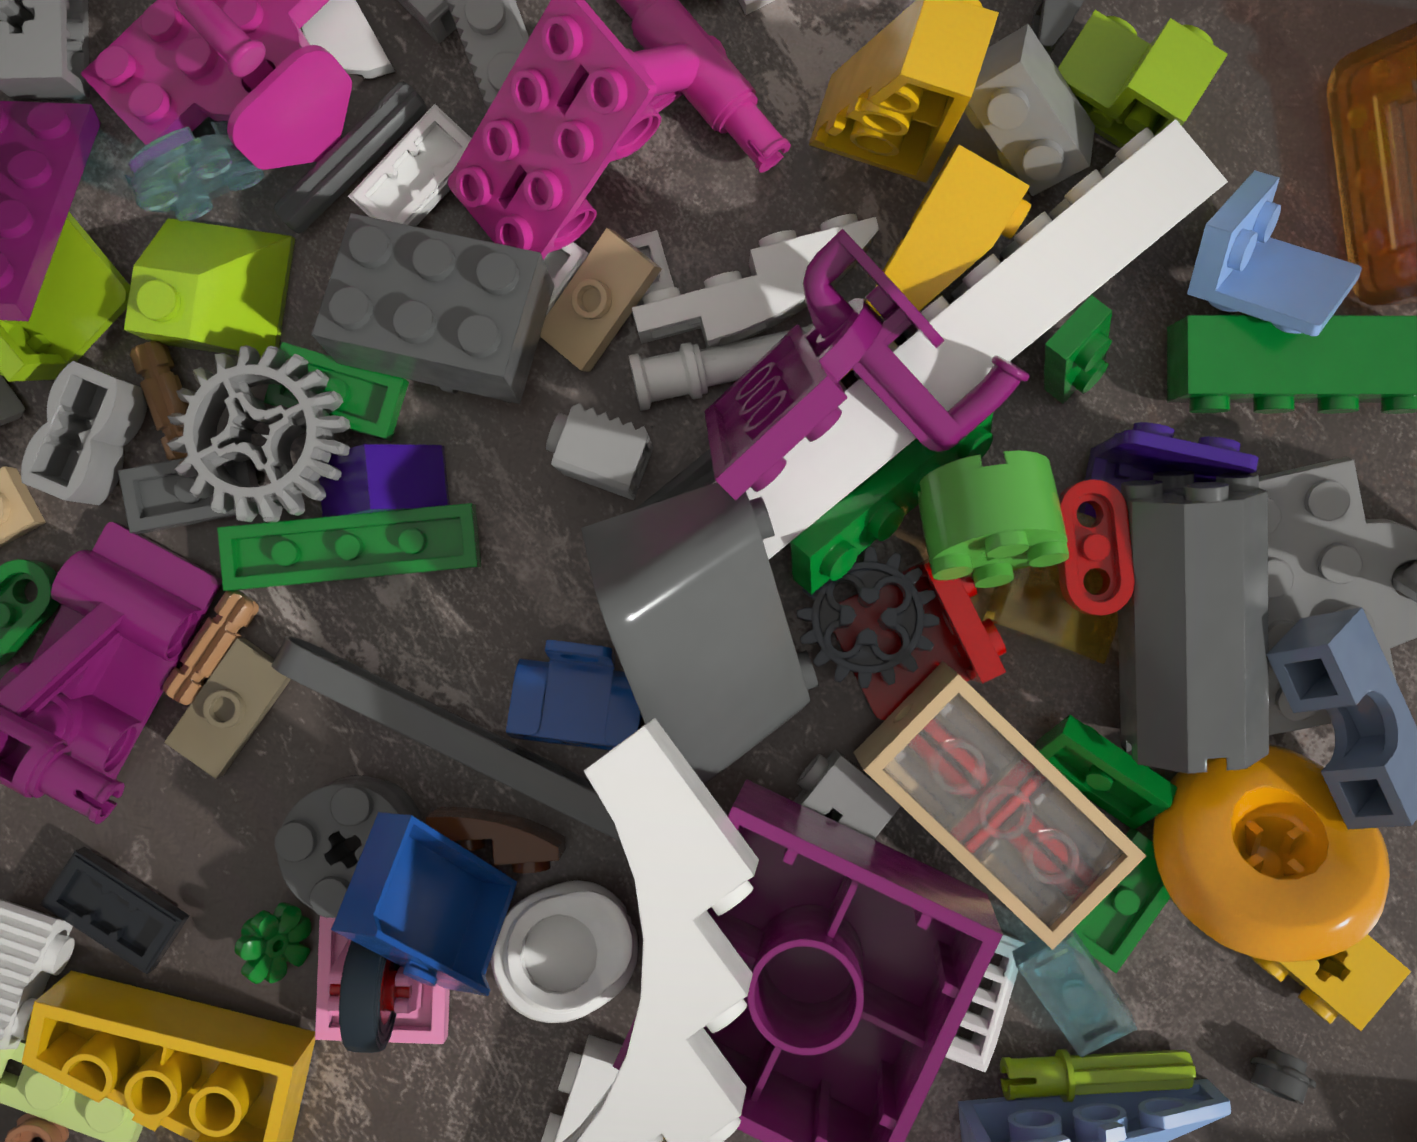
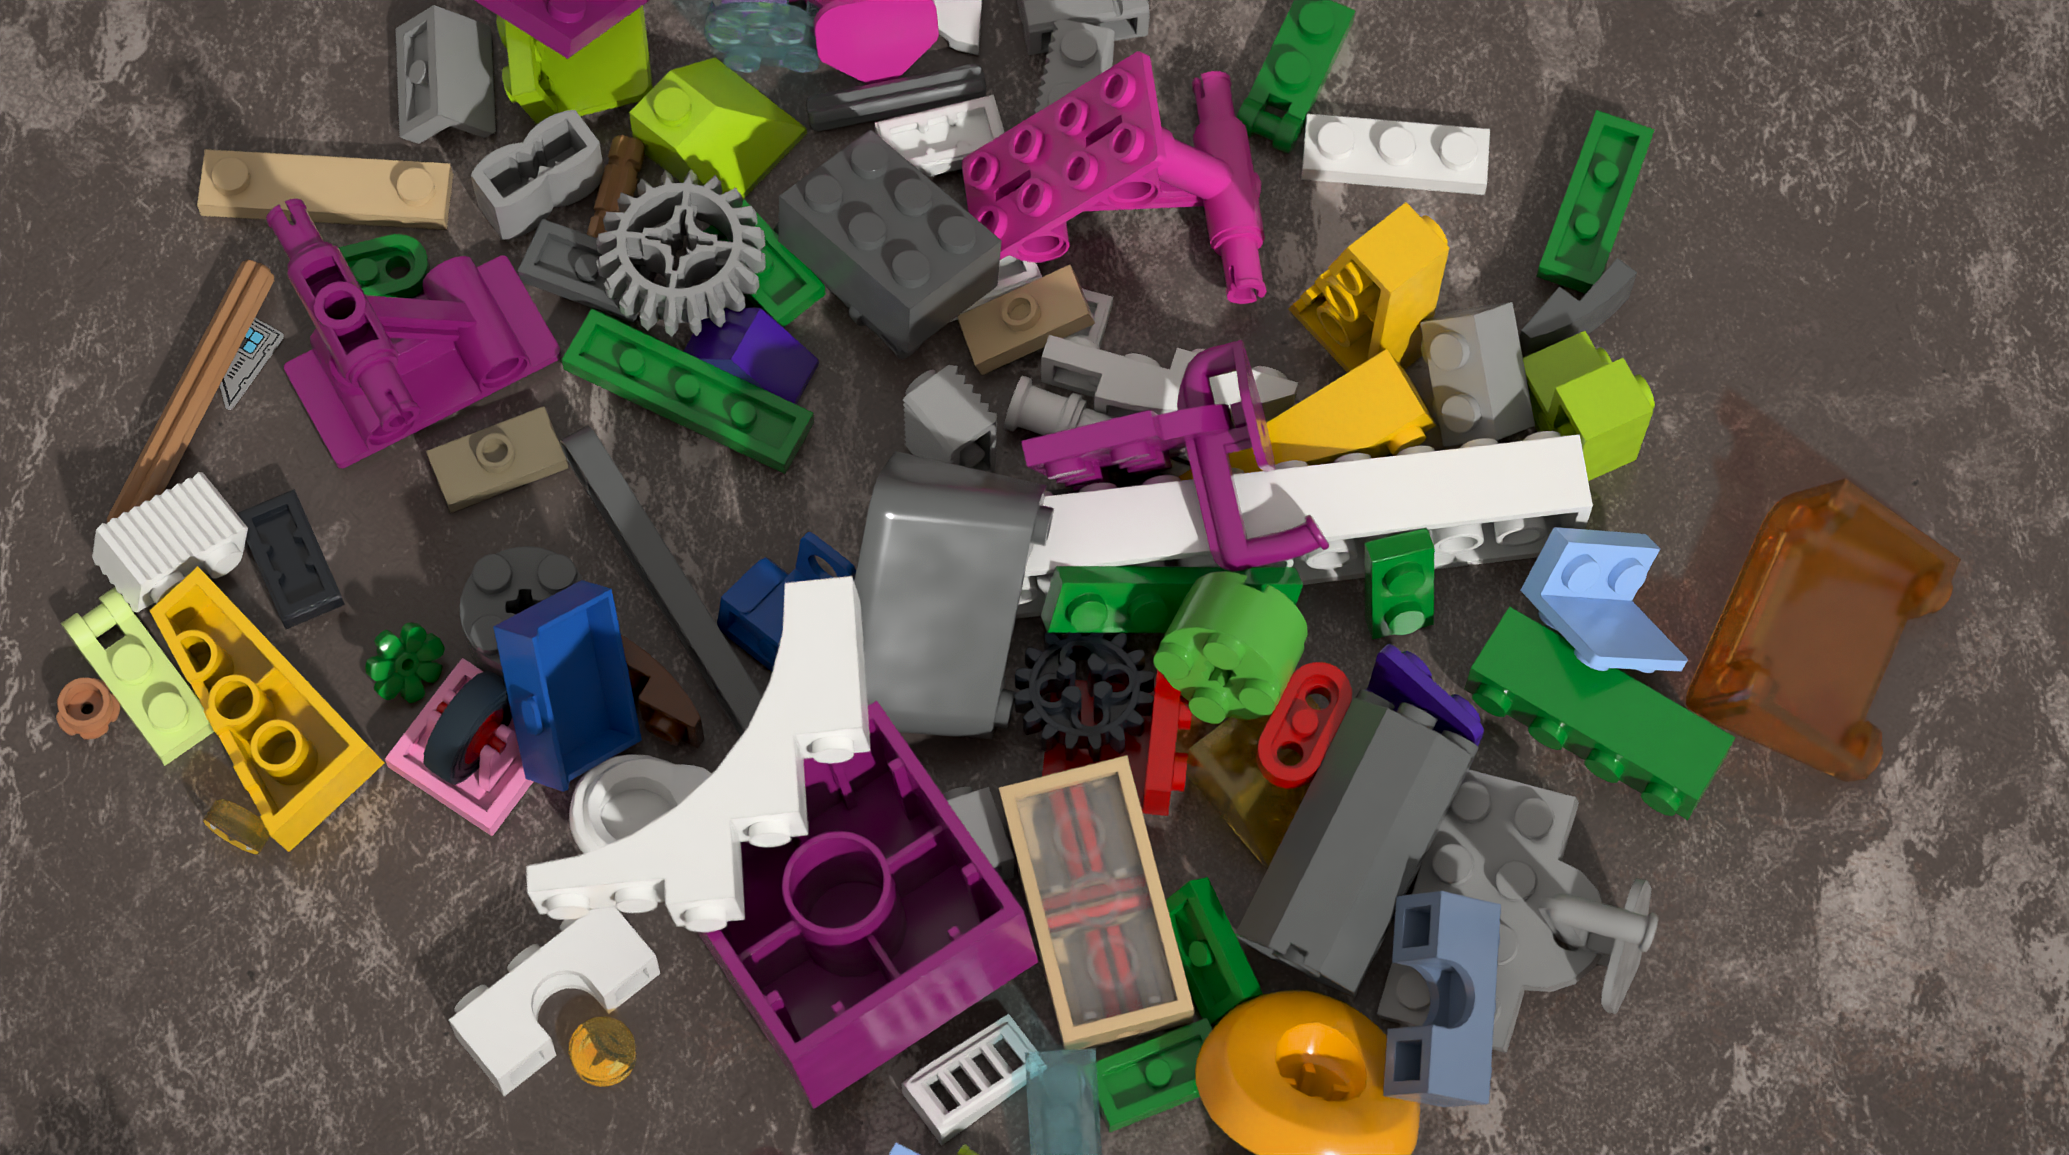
camera: 25 degrees right, 20 degrees down
(210, 646) = (517, 399): medium nougat axle -> none

